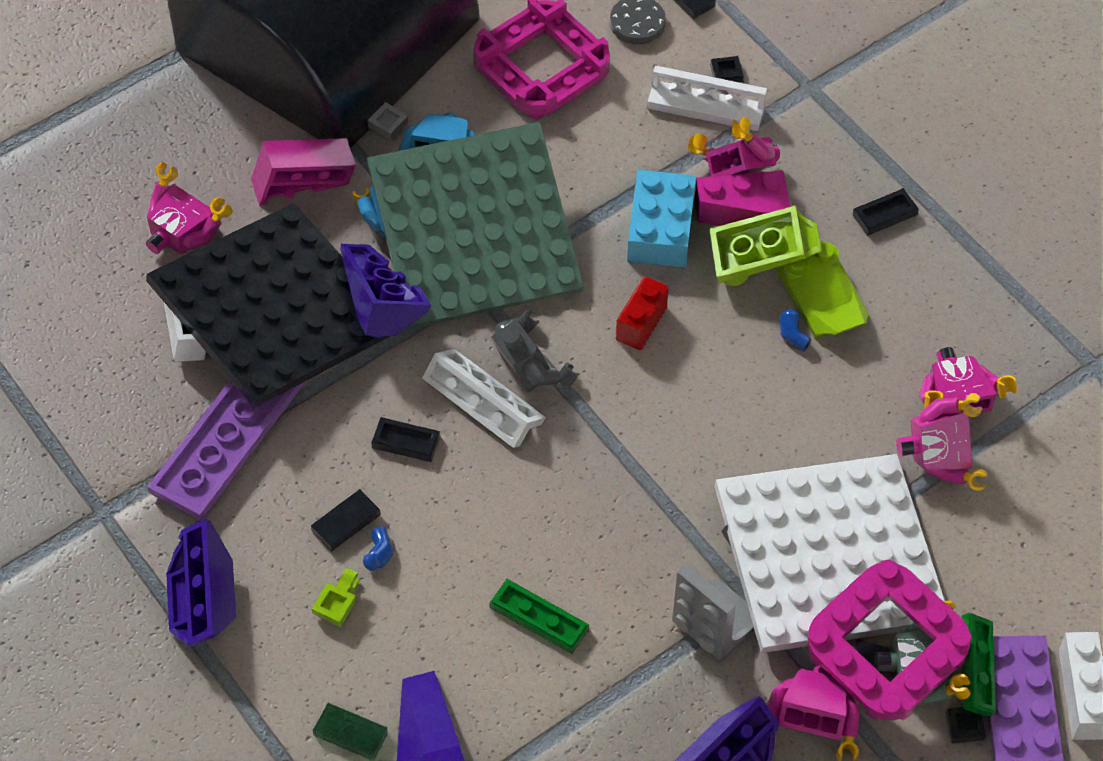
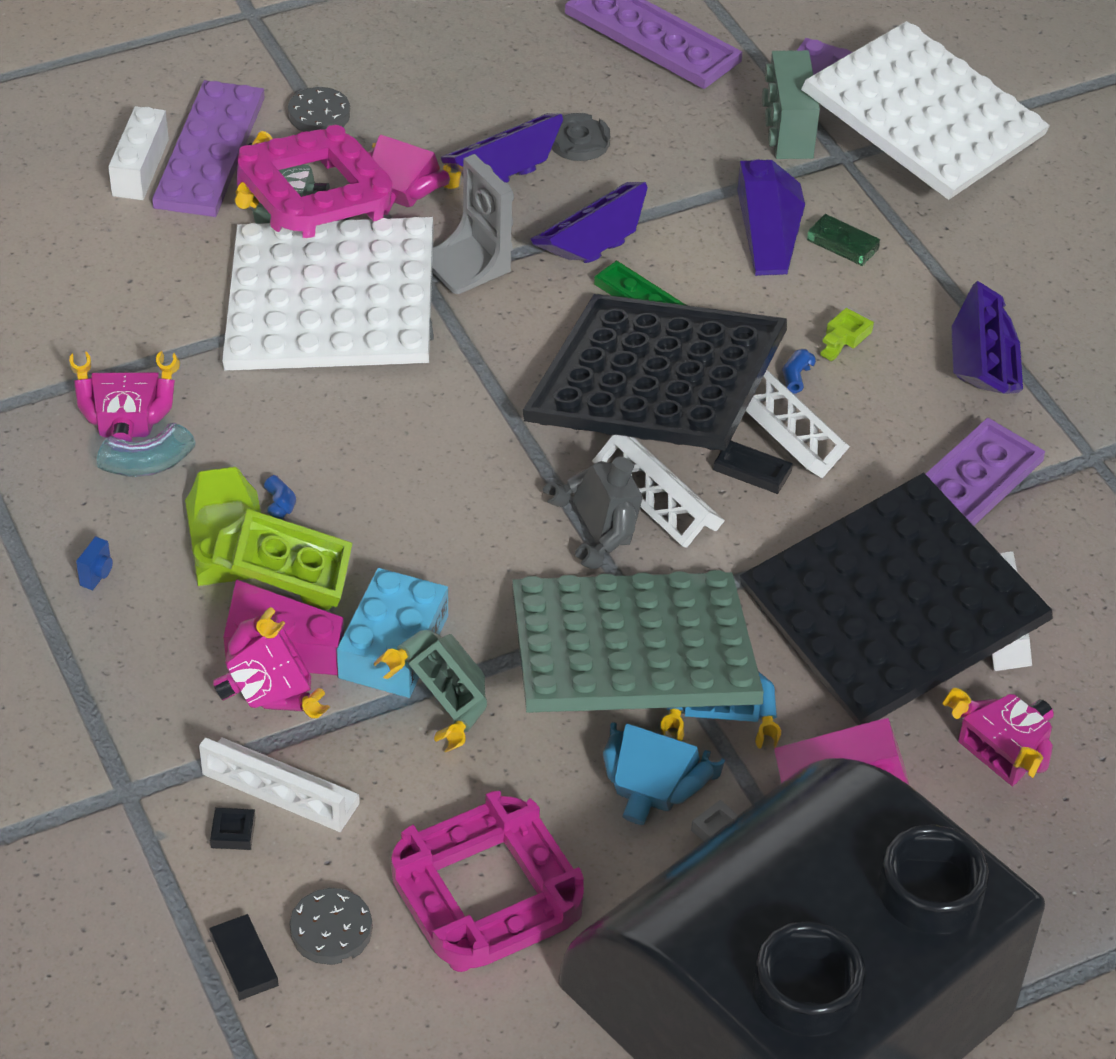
camera: 170 degrees left, 10 degrees down
(345, 520) = (834, 400): black tile -> none
(380, 295) = (761, 574): dark purple wedge -> none
(386, 474) = (786, 435): none -> white fence
(504, 489) = (657, 371): none -> black plate
(611, 670) = (597, 225): none -> dark purple wedge
(612, 173) = (448, 675): none -> sand green torso
(642, 313) = (452, 531): red brick -> none
(885, 211) = (108, 611): black tile -> none
(910, 237) = (94, 563): none -> blue plate
(913, 341) = (146, 456): none -> clear light blue cylinder
(943, 442) = (180, 337): dark pink torso -> none
(980, 666) = (225, 183): green tile -> none

